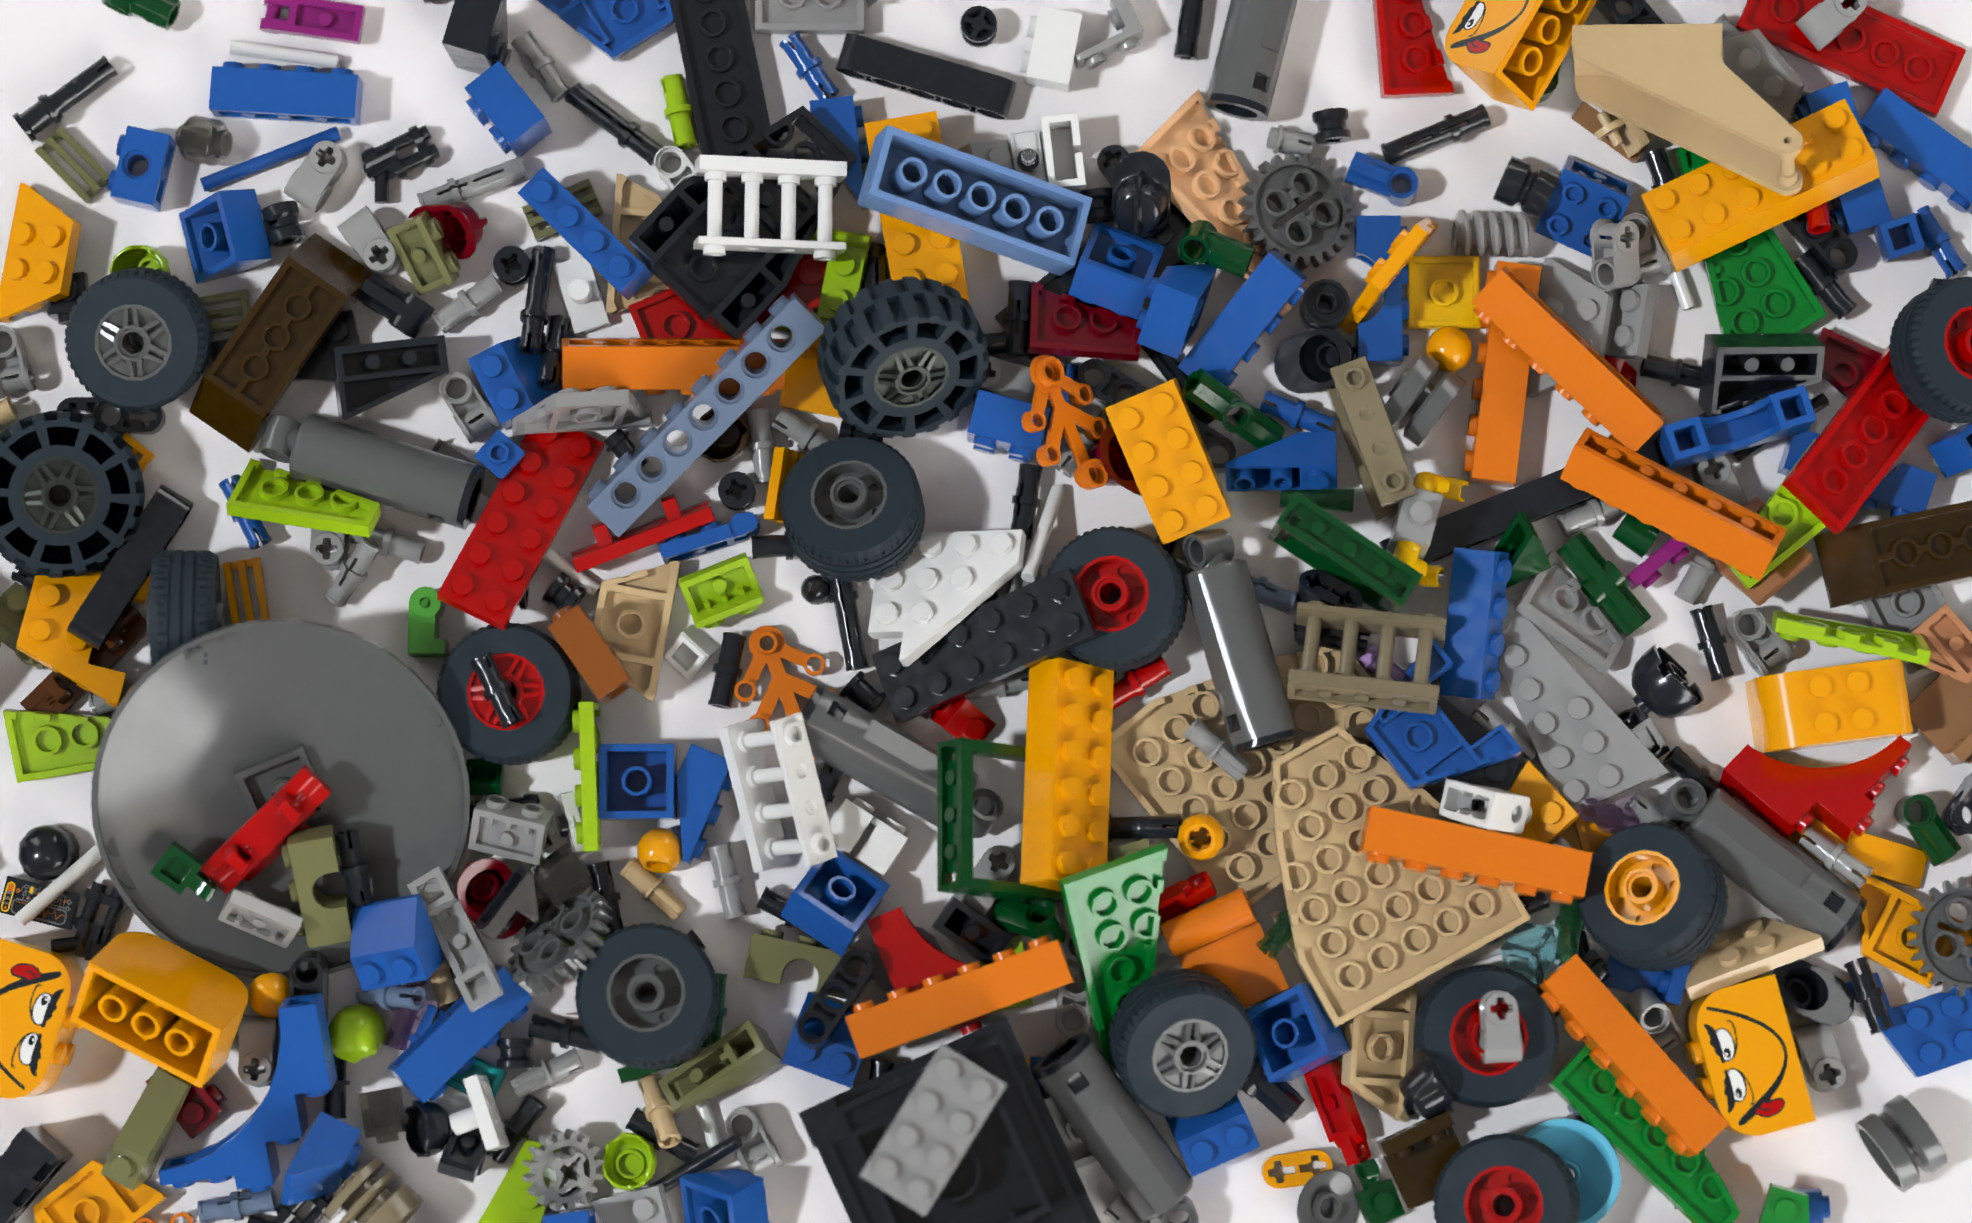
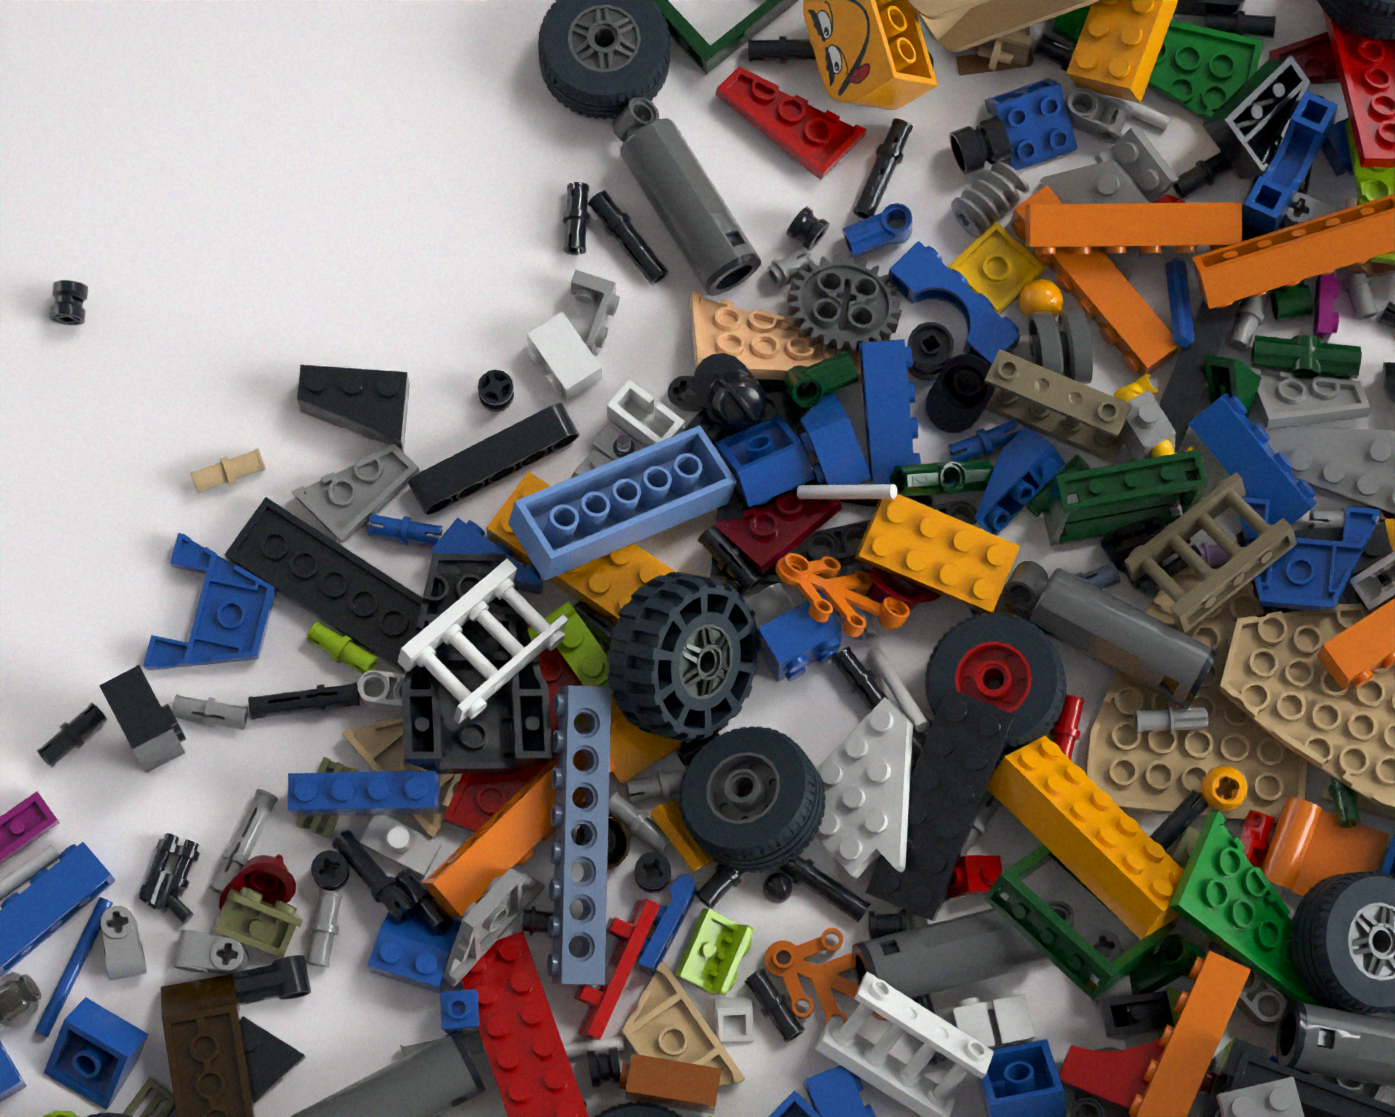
camera: 50 degrees left, 10 degrees down
(283, 223) = (131, 1002): black wheel -> none
(382, 370) = (313, 1034): black wedge -> none
(469, 407) = (400, 1001): light grey piece -> none
(508, 109) = (219, 762): blue brick -> none
(1145, 353) = (865, 491): none -> white bar
(1384, 271) = (954, 289): light orange wing -> none
(1549, 452) = (1179, 302): none -> blue axle
(1615, 257) = (1086, 127): light grey piece -> none

